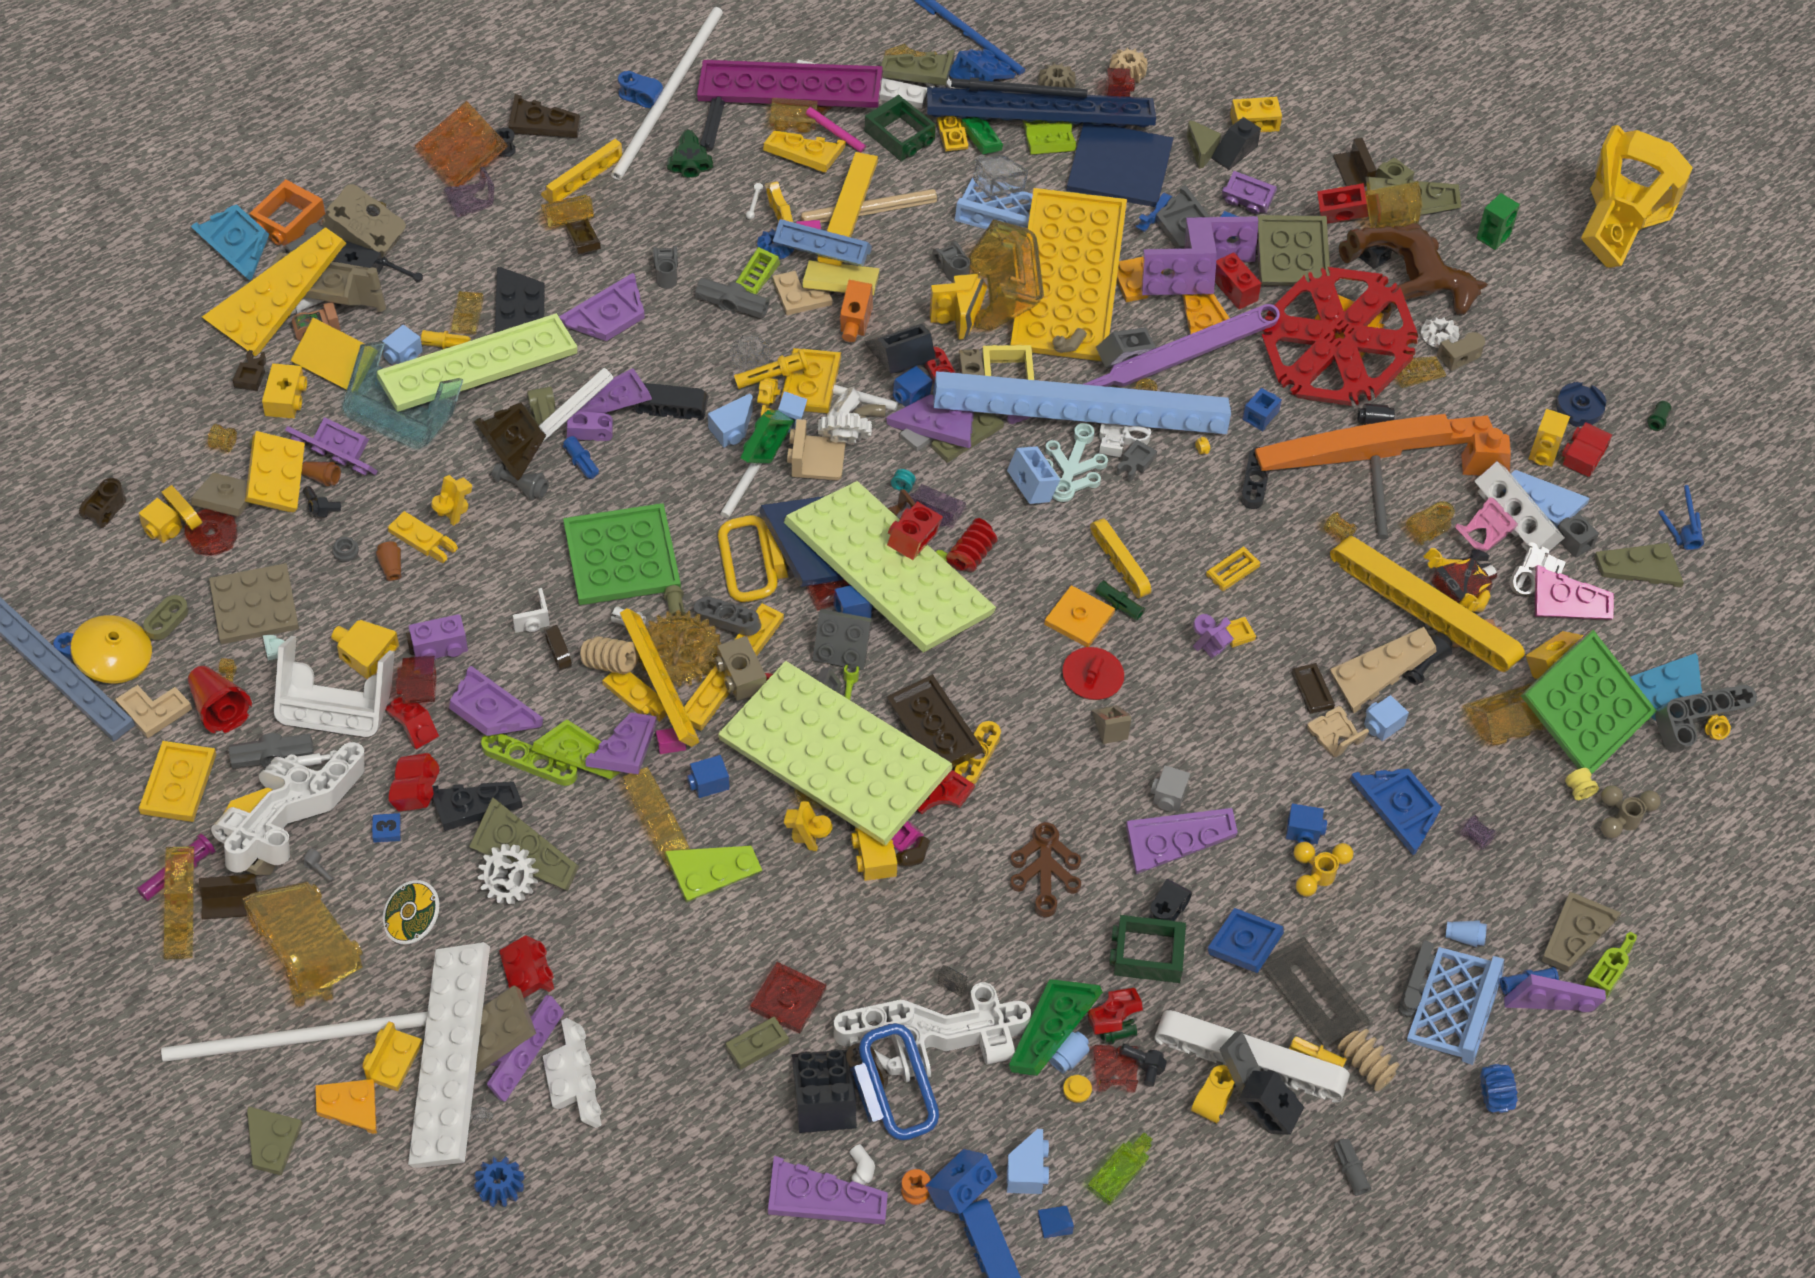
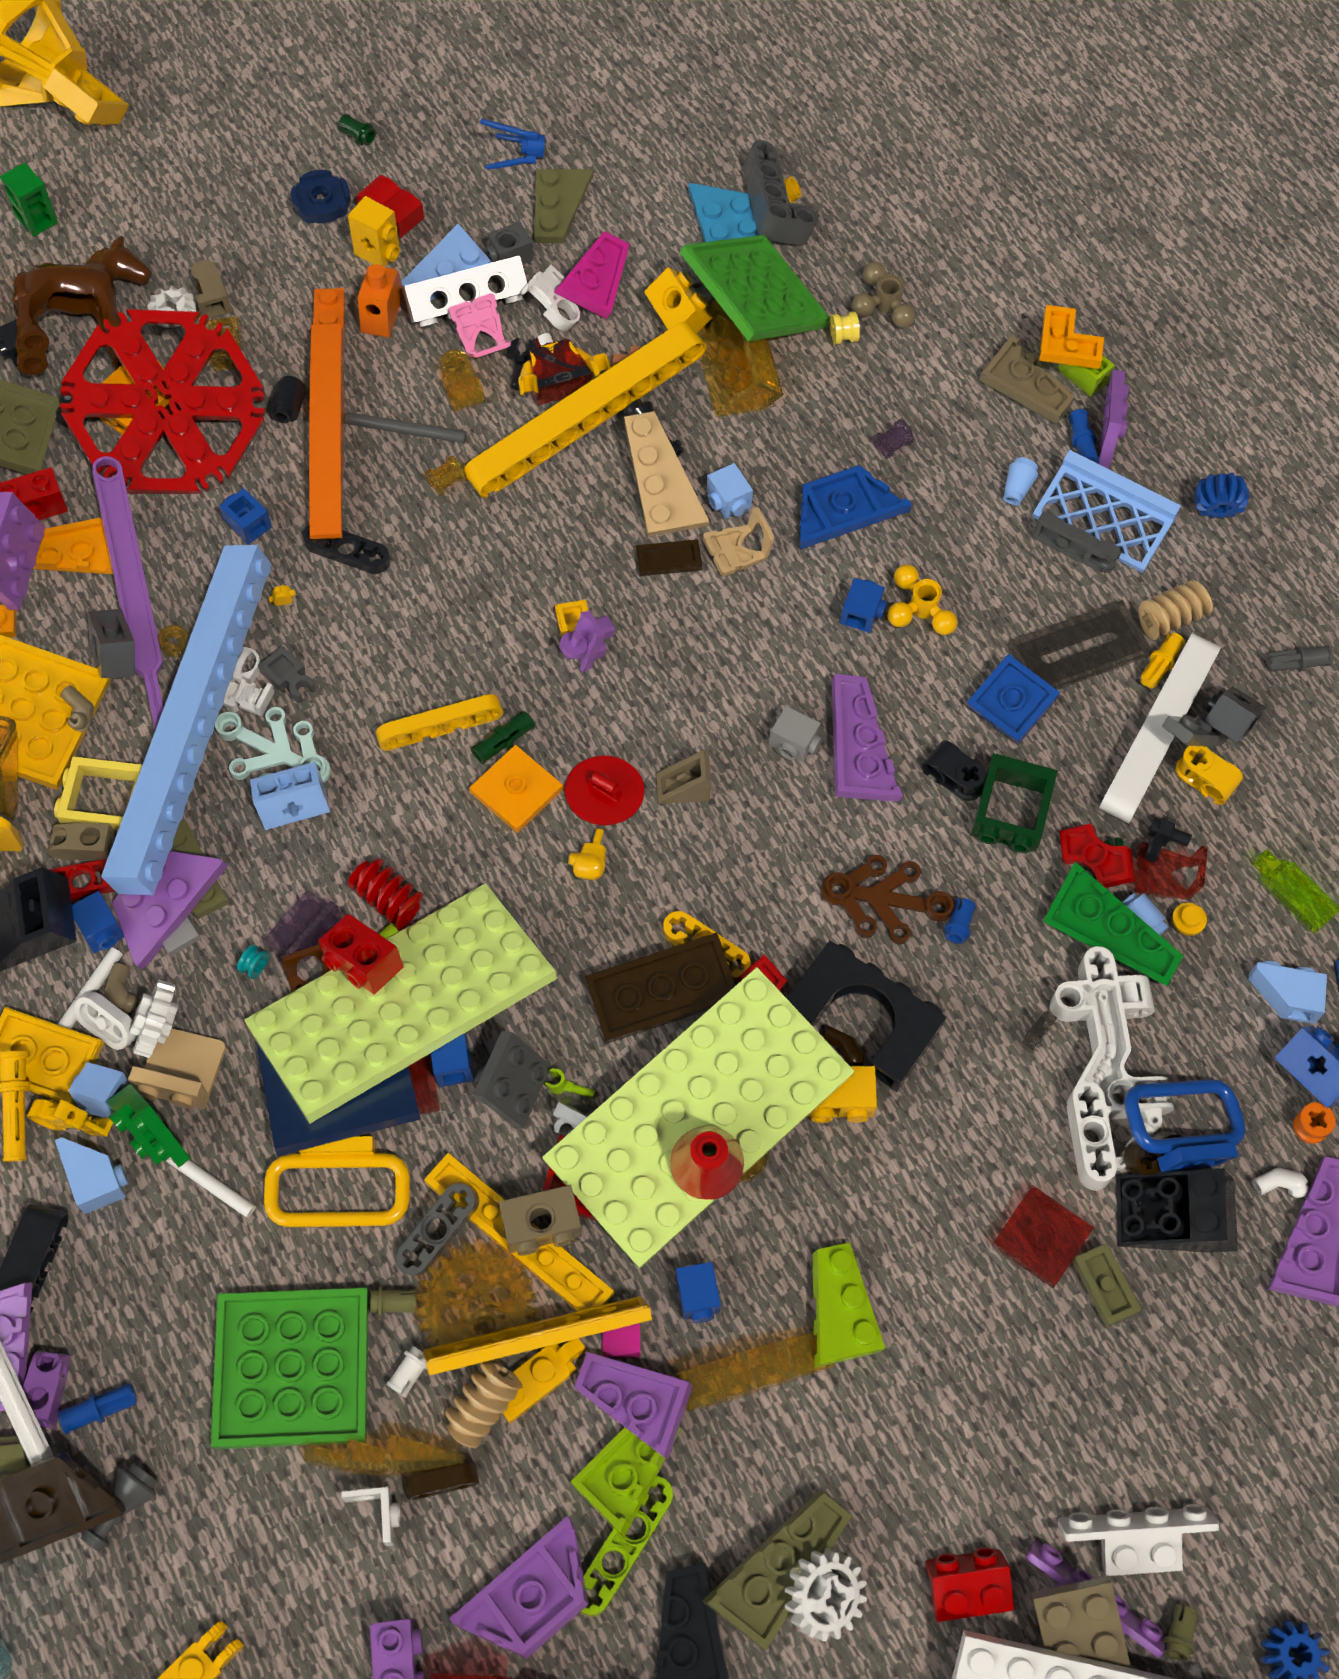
camera: 80 degrees left, 10 degrees up
(451, 499) = (140, 1618): yellow hips -> none
(508, 1106) = (1181, 1633): none -> olive pin
(570, 617) = (400, 1458): none -> clear yellow slope
(794, 747) = (704, 1175): none -> red cone
(807, 825) = (807, 1155): yellow hips -> none
(941, 892) = (914, 1022): none -> black arch
(1030, 670) = (591, 861): none -> yellow piece
(1037, 921) = (958, 928): none -> blue pin
(1218, 580) = (489, 624): yellow tile -> none
(1612, 938) = (1064, 346): none -> light orange plate

